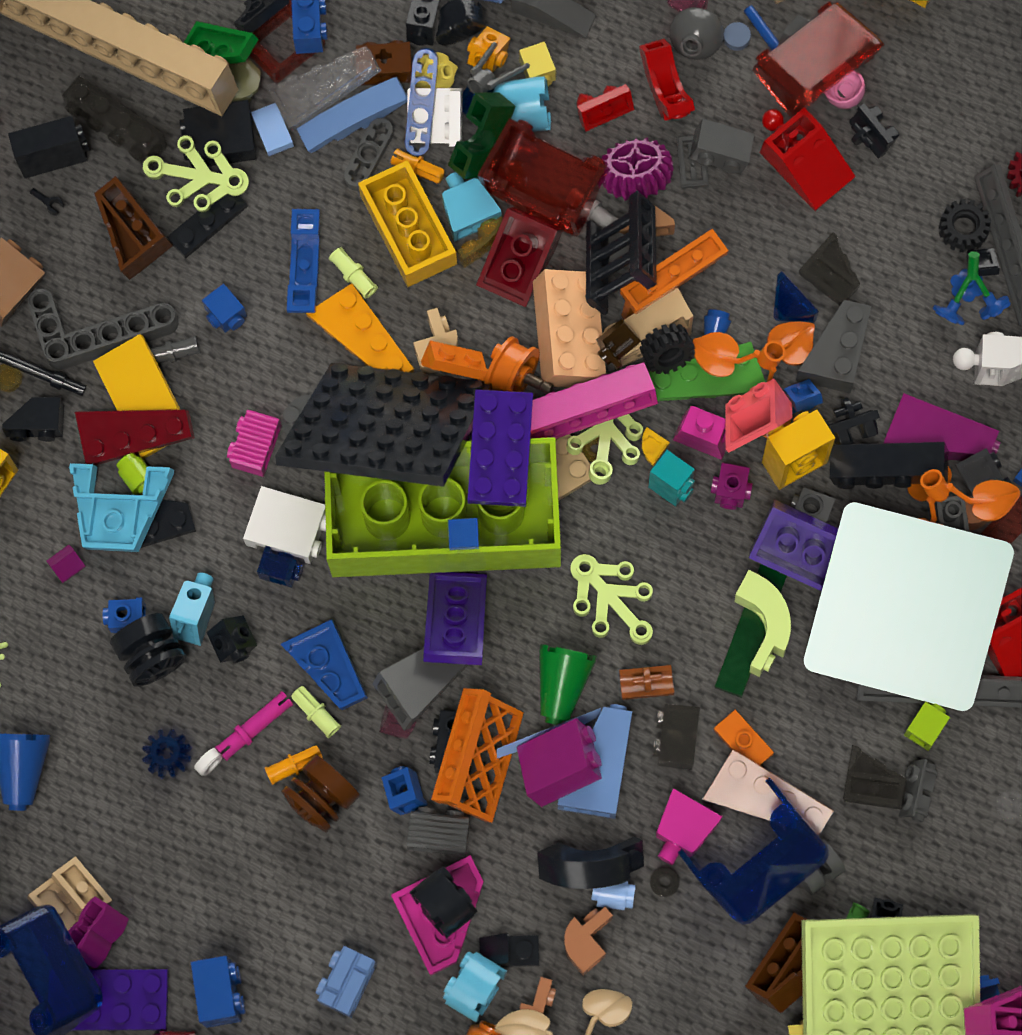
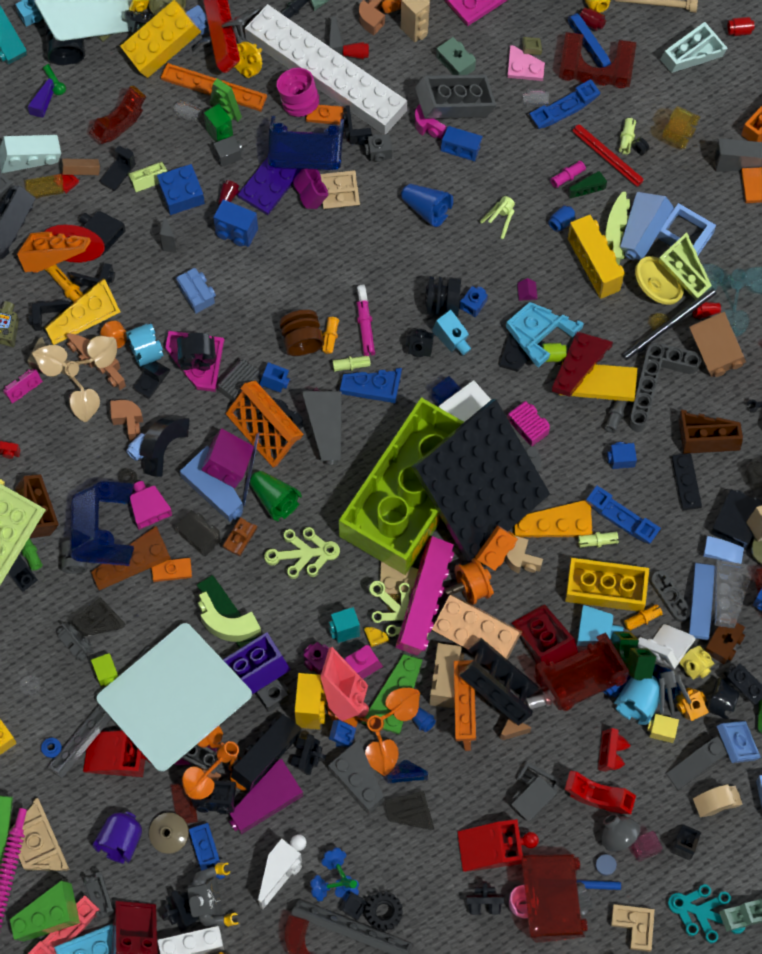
camera: 120 degrees right, 5 degrees down
(36, 418) = (622, 321): black slope -> none
(158, 762) = (388, 279): clear blue gear -> none
(200, 175) = (717, 489): yellowish green plant -> none
(424, 102) = (681, 636): beam -> none
(455, 618) = (343, 453): dark purple plate -> none
(463, 534) = (383, 473): blue tile -> none
(474, 250) = (566, 619): clear yellow slope -> none
(500, 448) = (419, 524): dark purple plate -> none
(617, 343) = (445, 641): dark brown bracket -> none
(637, 167) = (559, 736): magenta gear -> none
(667, 348) = (423, 672): black tyre -> none

